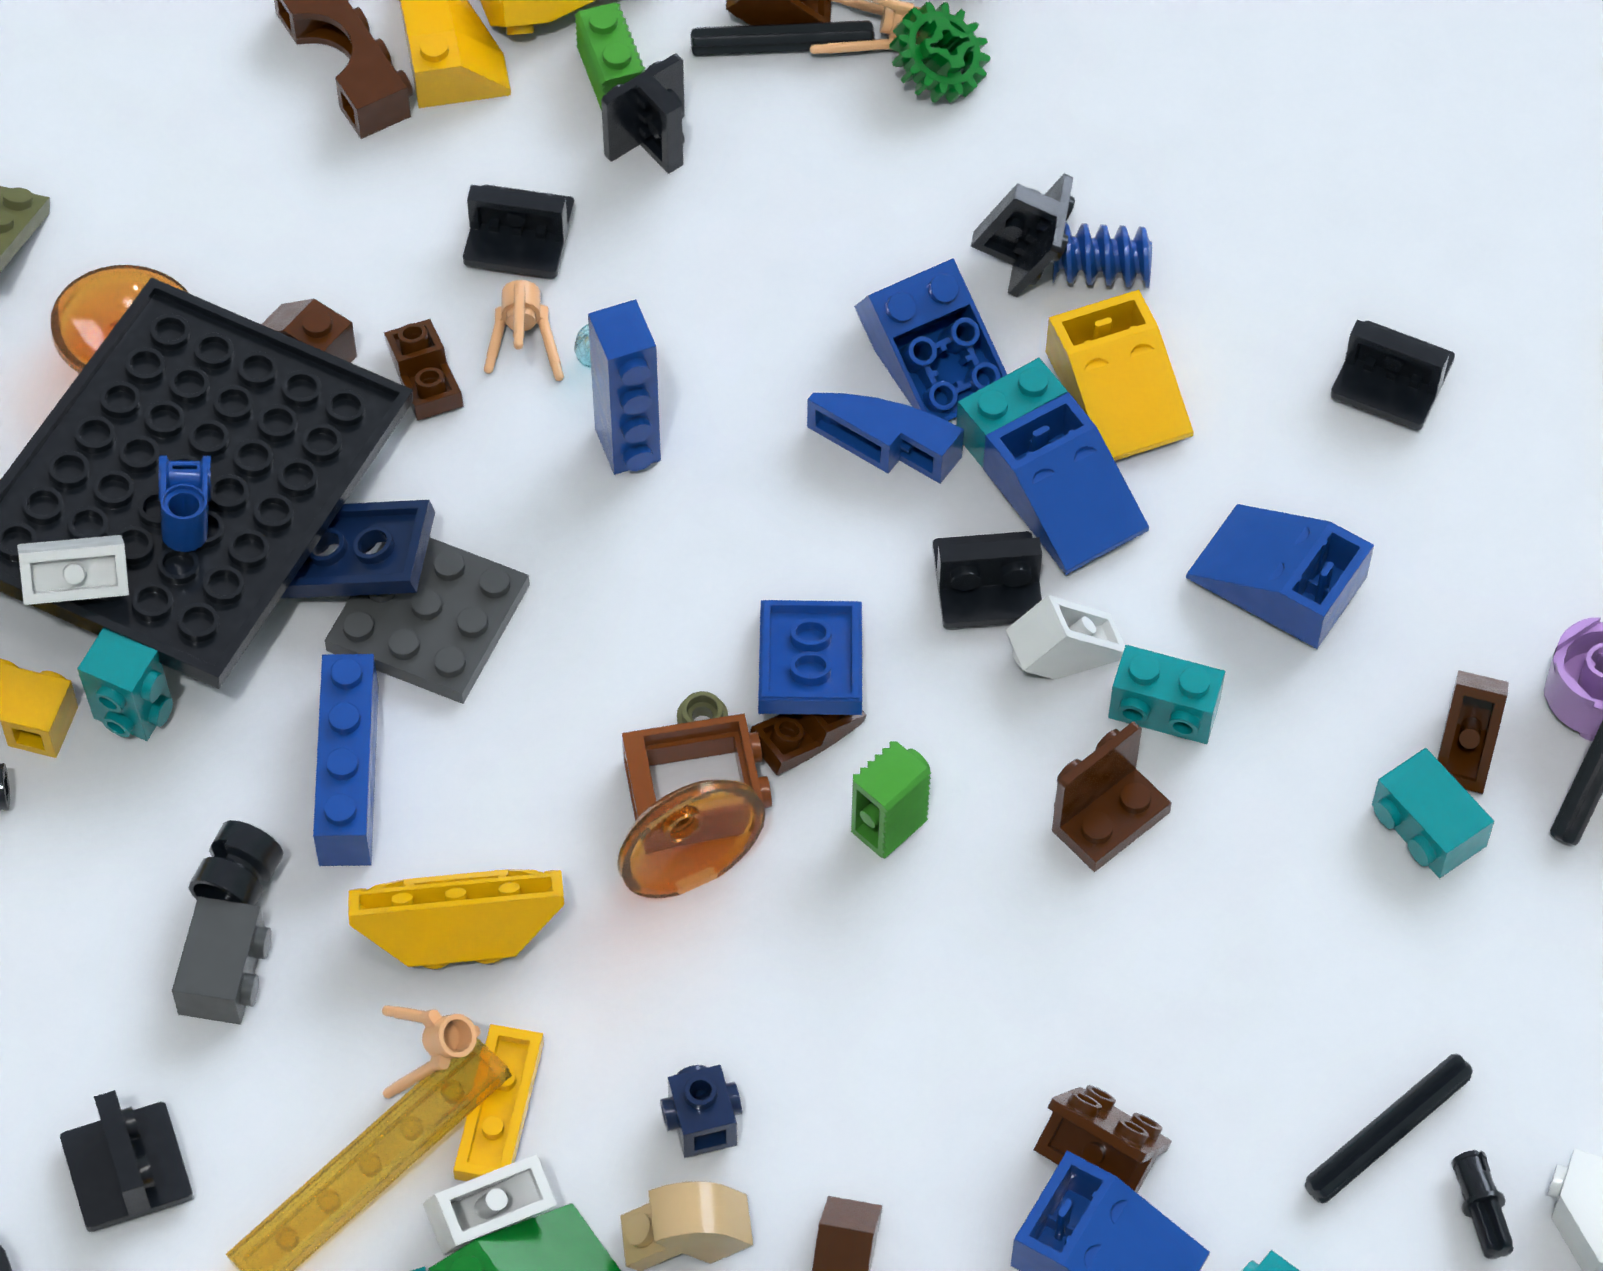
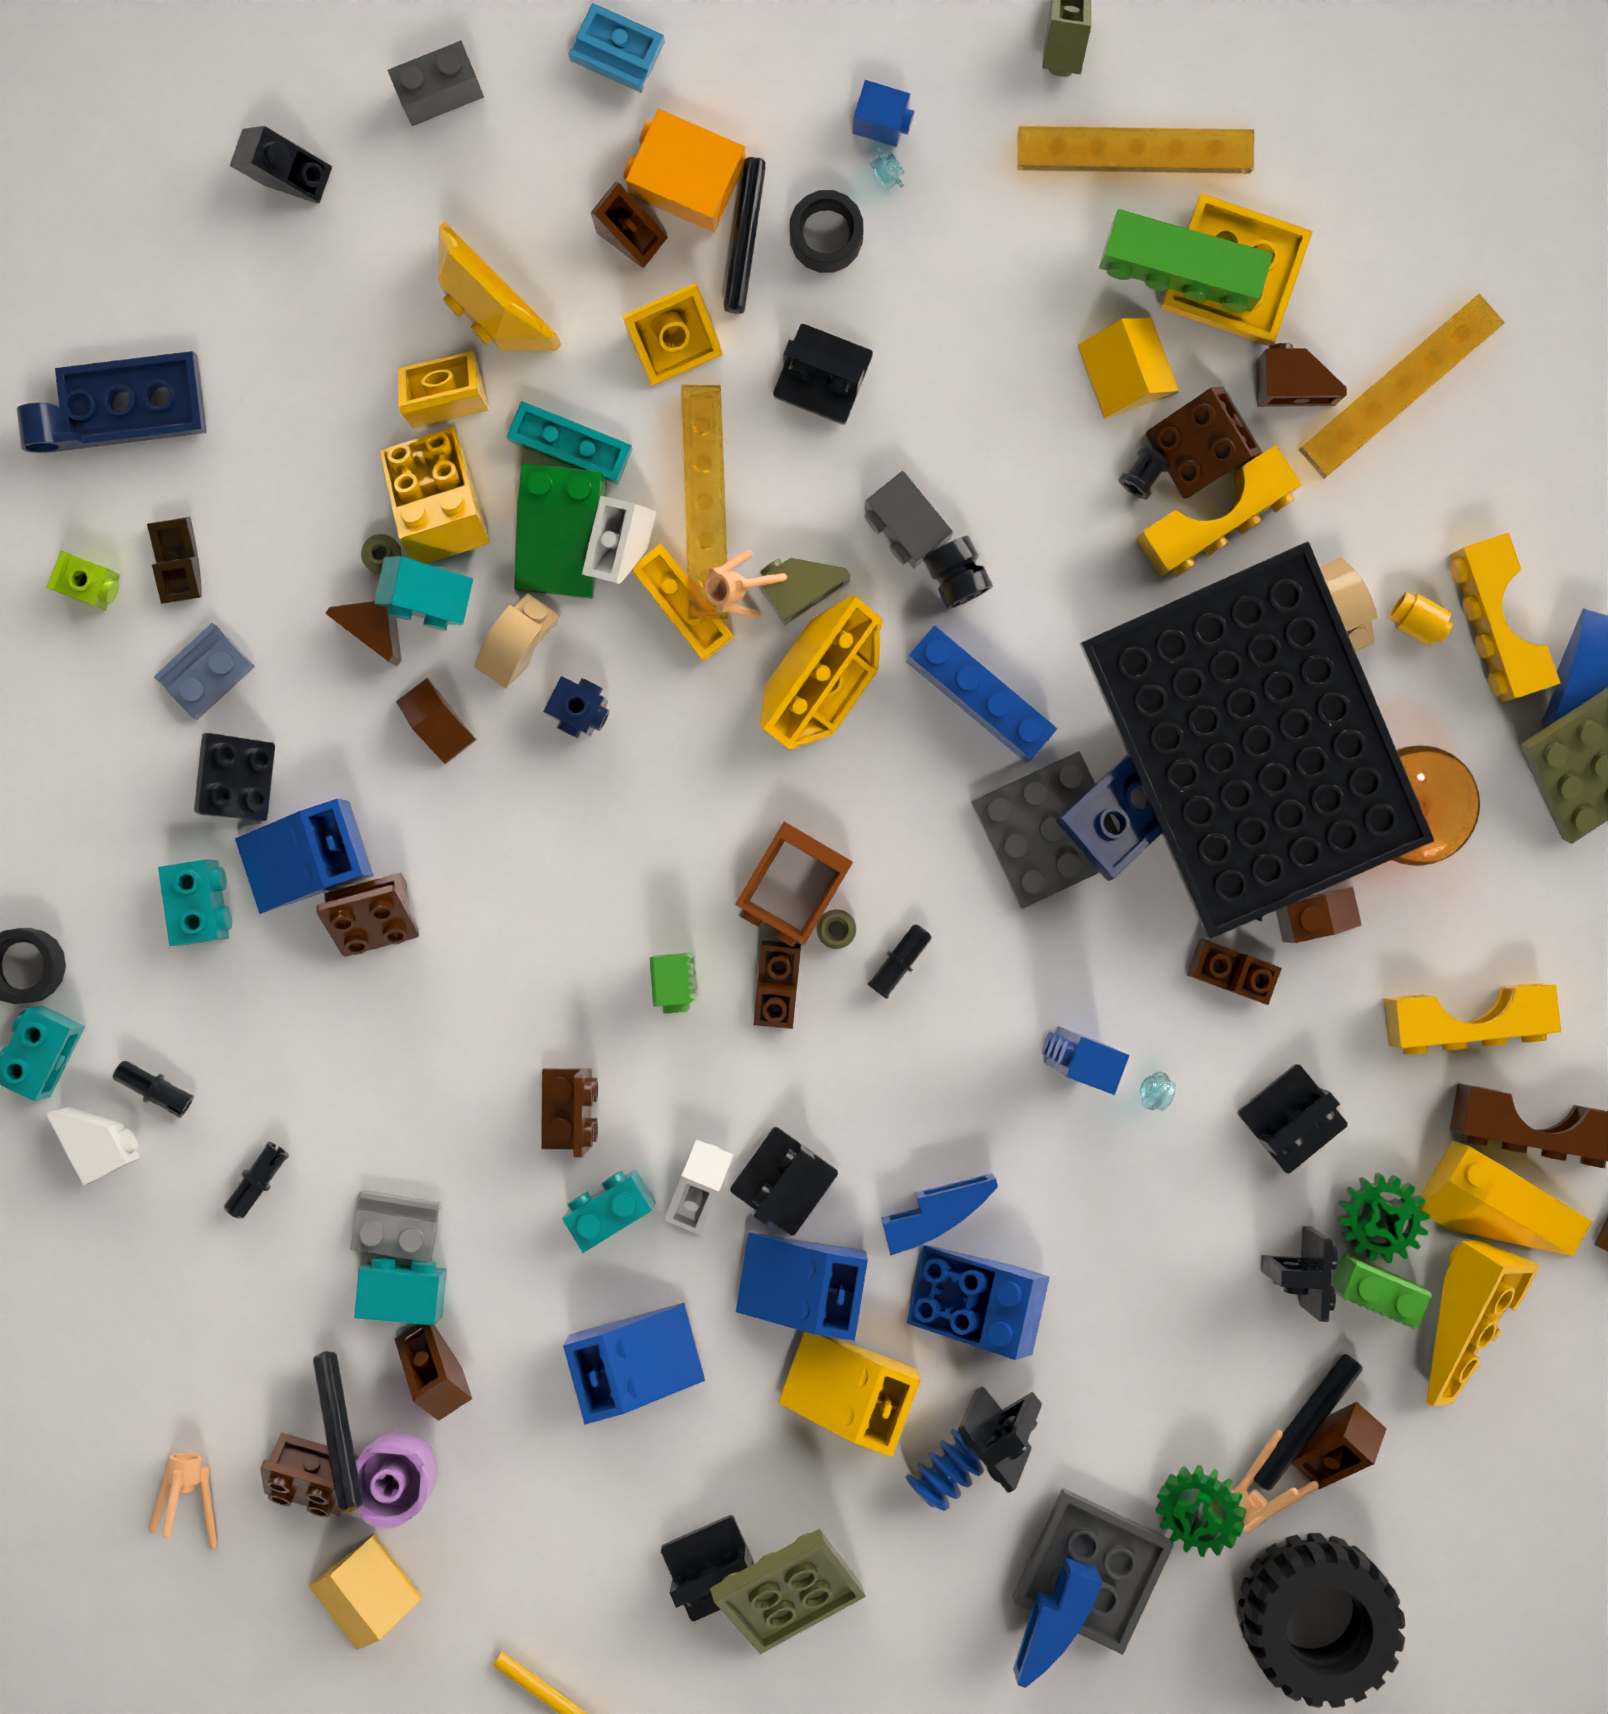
camera: 130 degrees right, 30 degrees up
(73, 569) = (1231, 608): white panel -> none
(125, 685) = (1135, 595): teal brick -> none
(184, 502) = (1235, 722): blue piece -> none
(251, 129) = (1519, 1011): none -> yellow arch
(363, 993) = (805, 586): none -> olive slope
(520, 312) = (1226, 1066): light nougat plant -> none
(538, 101) = (1398, 1213): none -> green gear
(680, 639) = (900, 960): none -> black axle
(690, 837) = (749, 838): clear orange dish -> none
(810, 657) = (815, 1023): blue tile -> none
(1004, 402) = (884, 1301): teal brick -> none
(1077, 96) = (1120, 1549): none -> dark grey plate
(1145, 79) = (1056, 1620): none -> blue slope
(1339, 287) = (788, 1591): none -> olive plate
(1378, 876) = (395, 1226): none -> light grey plate
(1388, 1128) = (243, 1081): black axle -> none
(1468, 1032) = (255, 1180): none -> black axle

